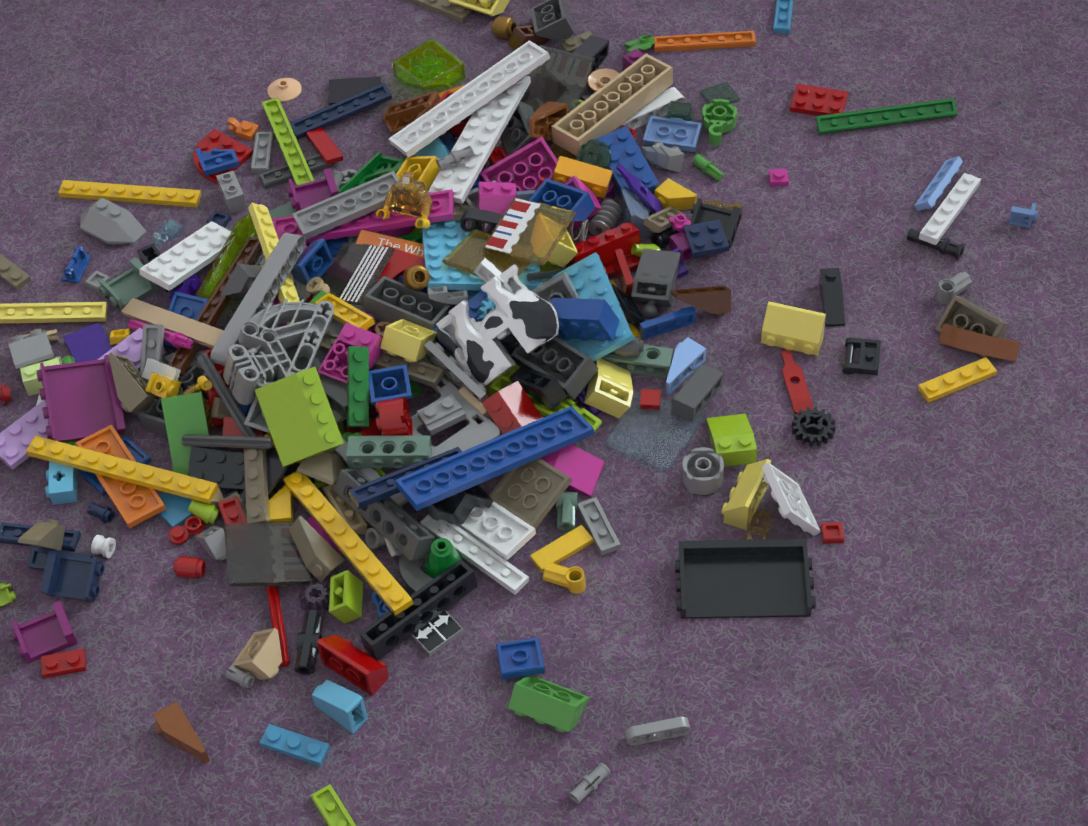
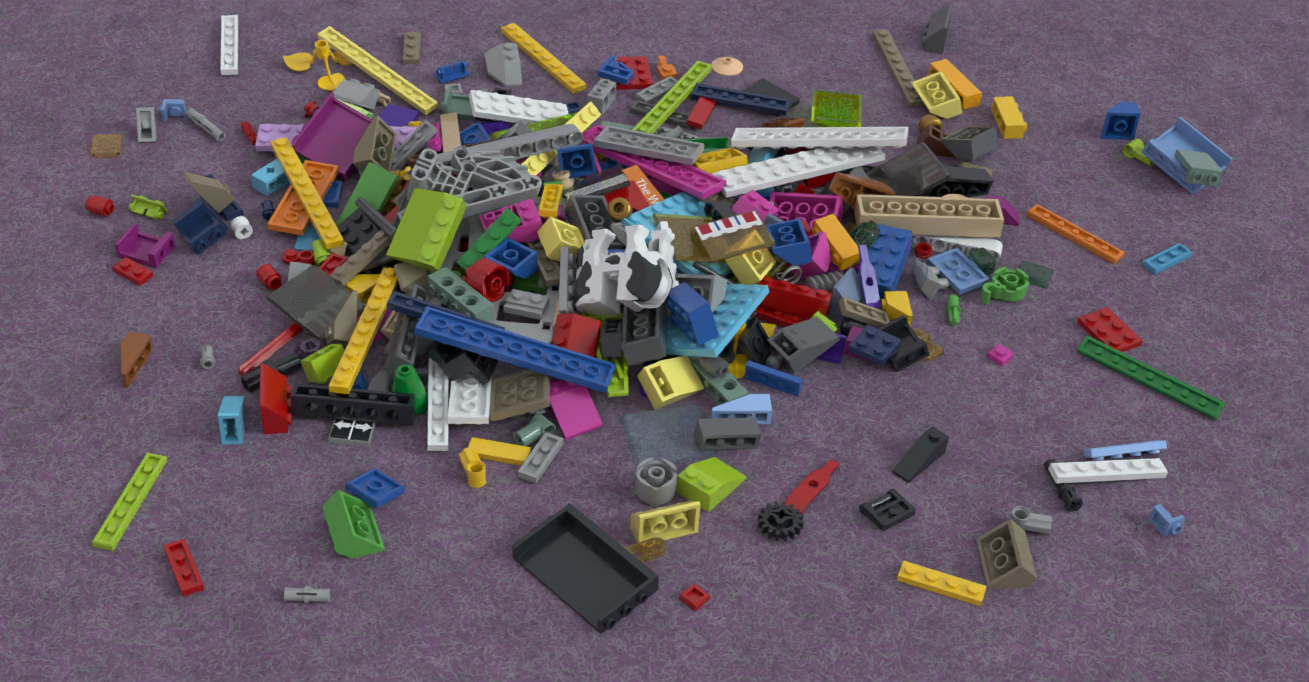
camera: 40 degrees right, 10 degrees down
(160, 368) = (401, 156): white tile -> none
(162, 385) = (388, 160): yellow brick -> none
(169, 230) = (534, 92): clear light blue plate -> none
(261, 655) = (232, 355): tan slope -> none
(294, 745) = (181, 420): dark azure plate -> none
(312, 192) = (633, 121): magenta panel -> none
(408, 198) = (682, 162): clear yellow torso -> none
(455, 157) = (754, 163): light grey pin -> none
(622, 271) = (781, 317): red tile -> none
(643, 43) = (1024, 202): bright green plate -> none
(650, 399) = (689, 413): red tile -> none
(657, 731) = (392, 604): light grey beam -> none
(679, 221) = (871, 319): dark pink plate -> none
(710, 299) = (819, 383): reddish brown slope -> none
(790, 499) = (684, 543): white plate -> none
(793, 328) = (855, 449): light yellow slope -> none
(979, 342) = (994, 574): dark orange slope -> none

